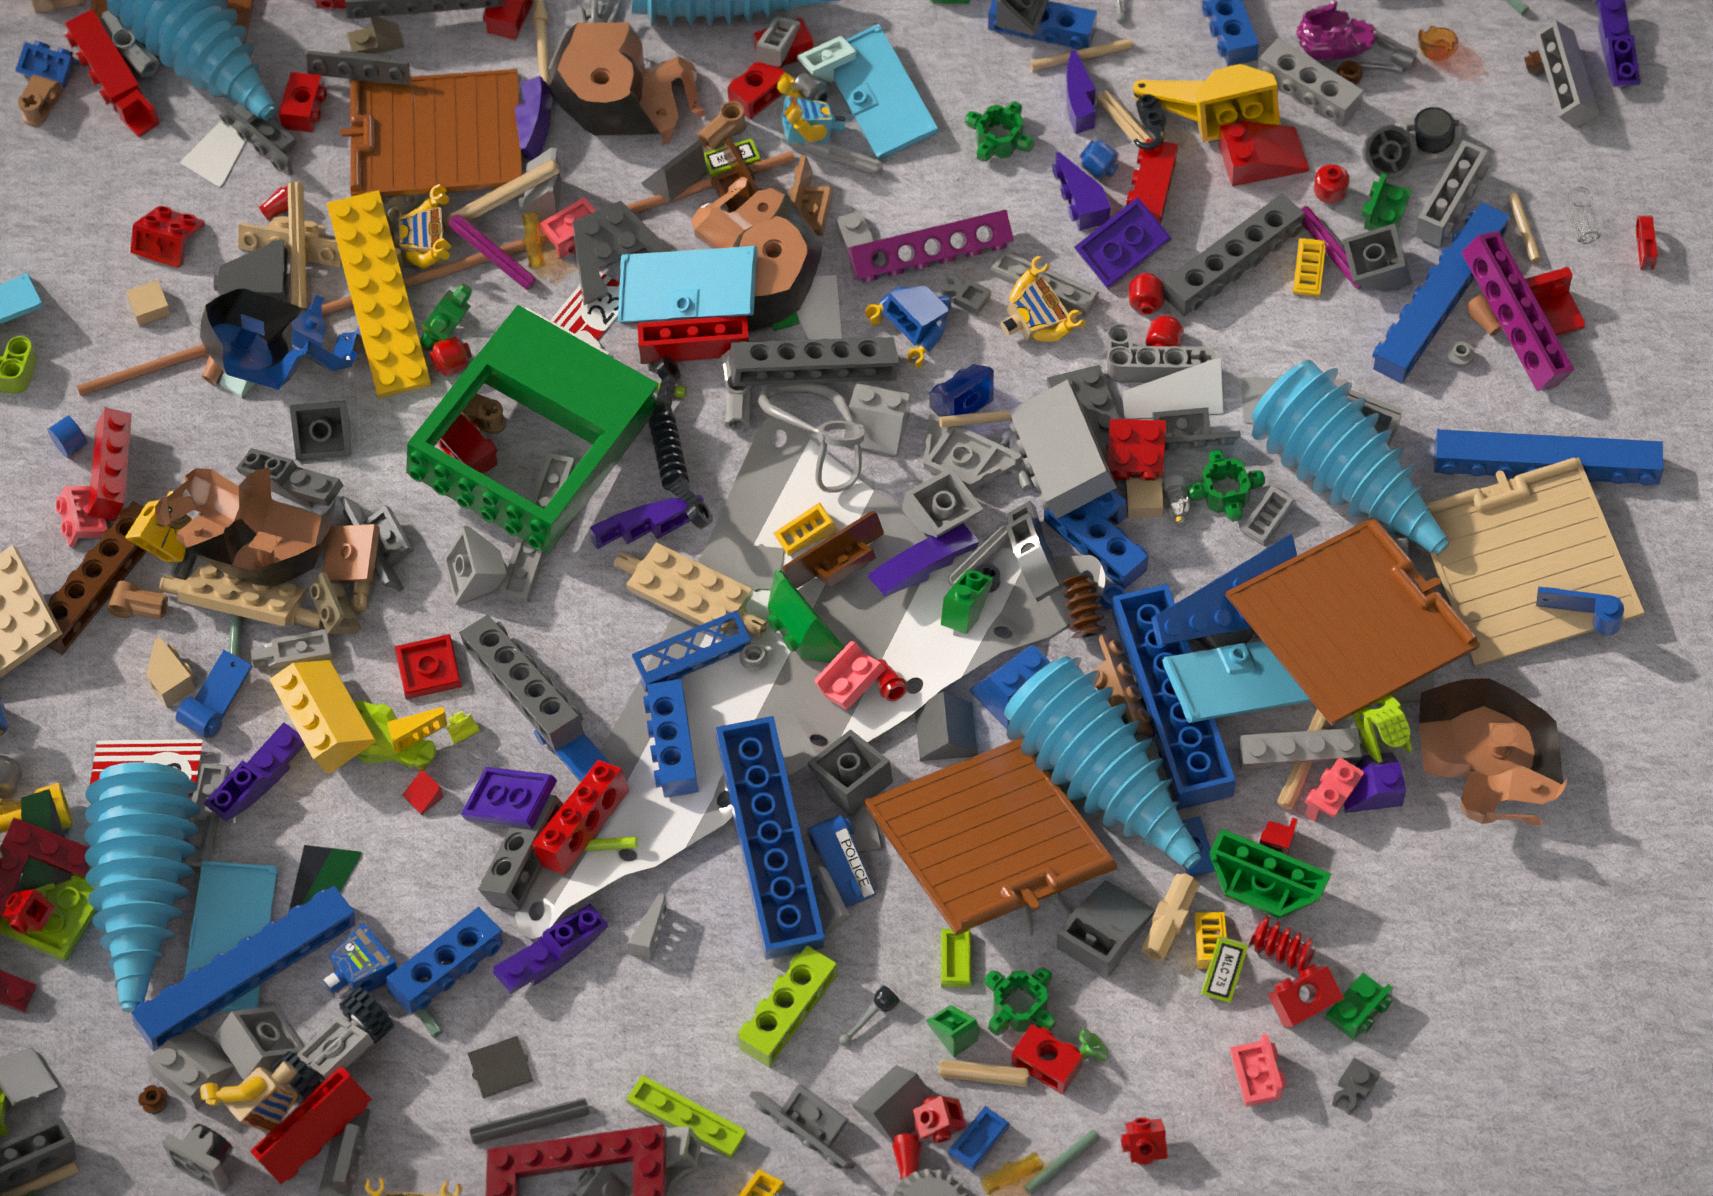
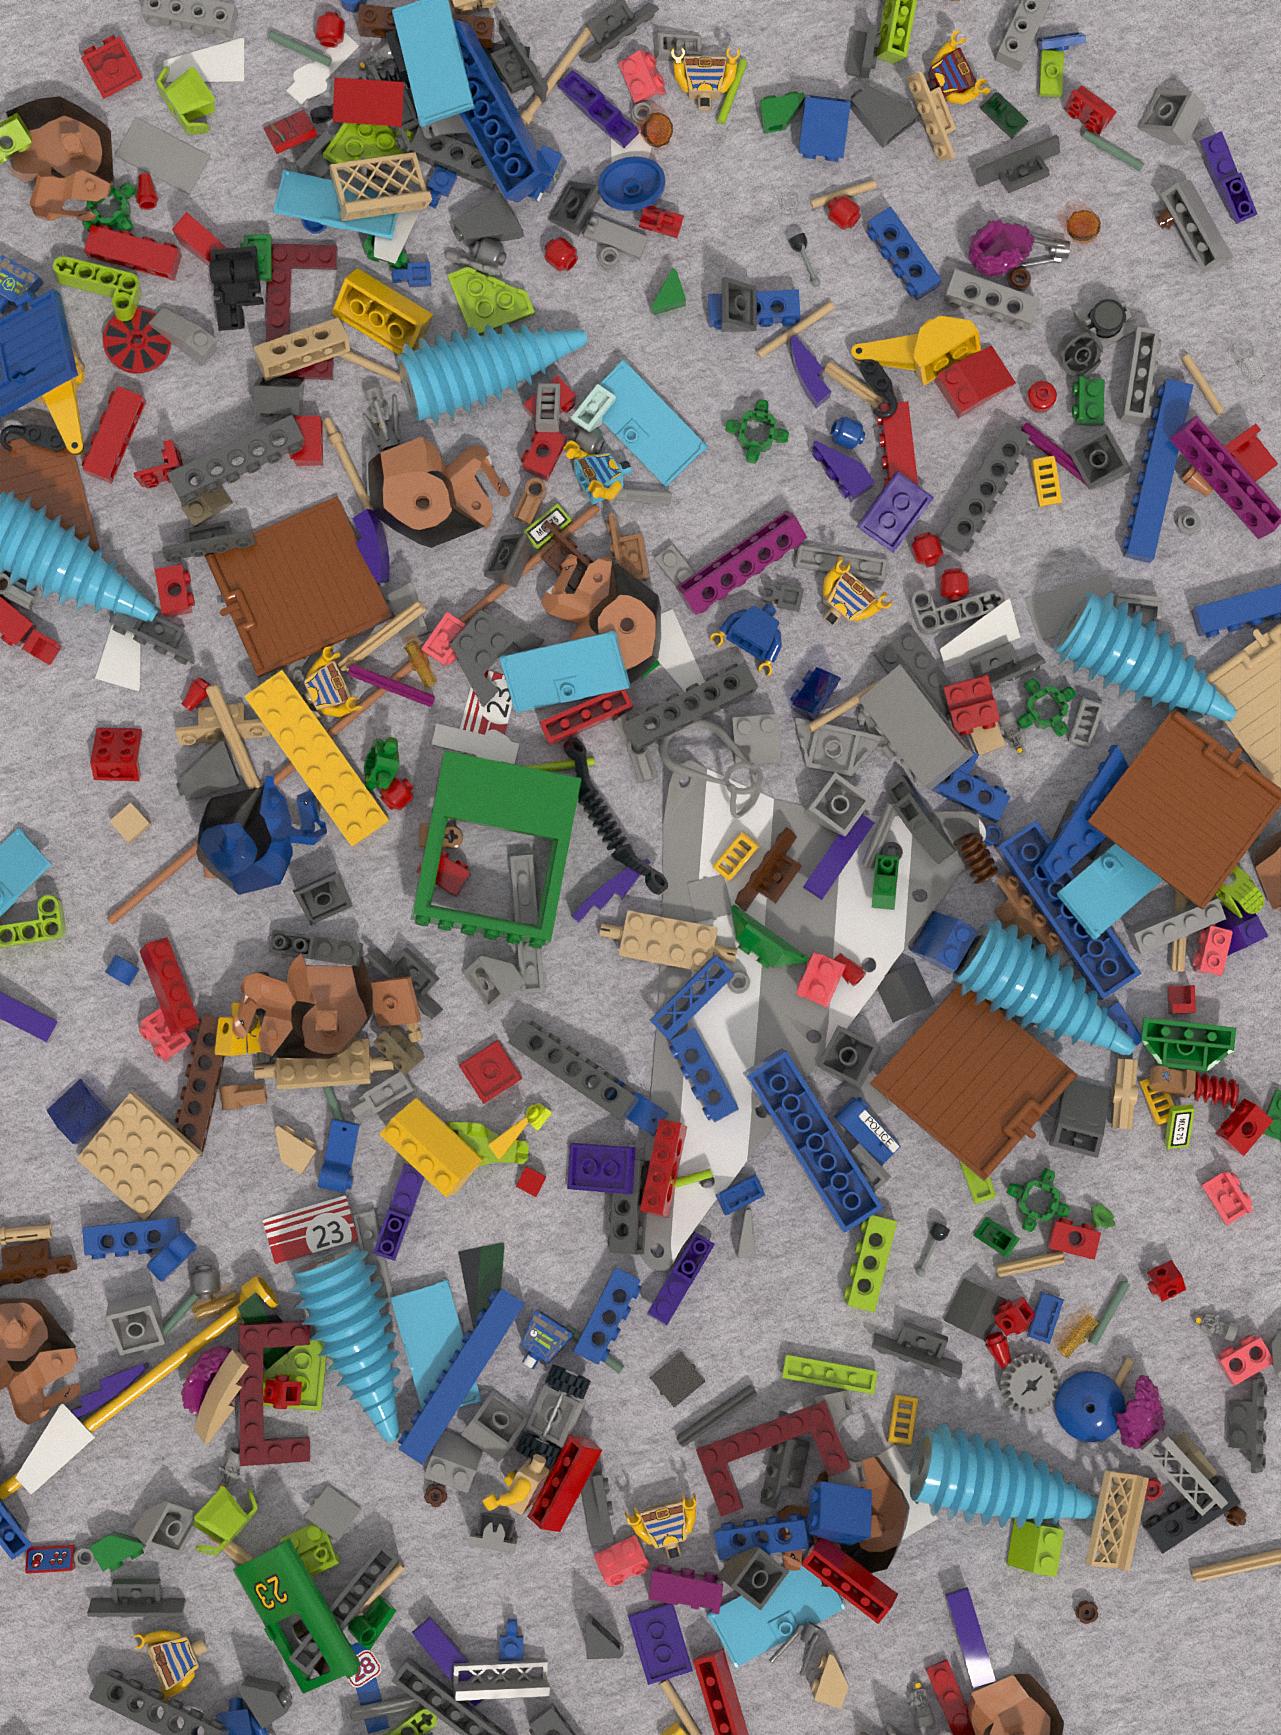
camera: 25 degrees left, 25 degrees up
(662, 879) = (740, 1194): none -> blue plate
(1232, 916) = (1172, 1081): none -> medium nougat leg

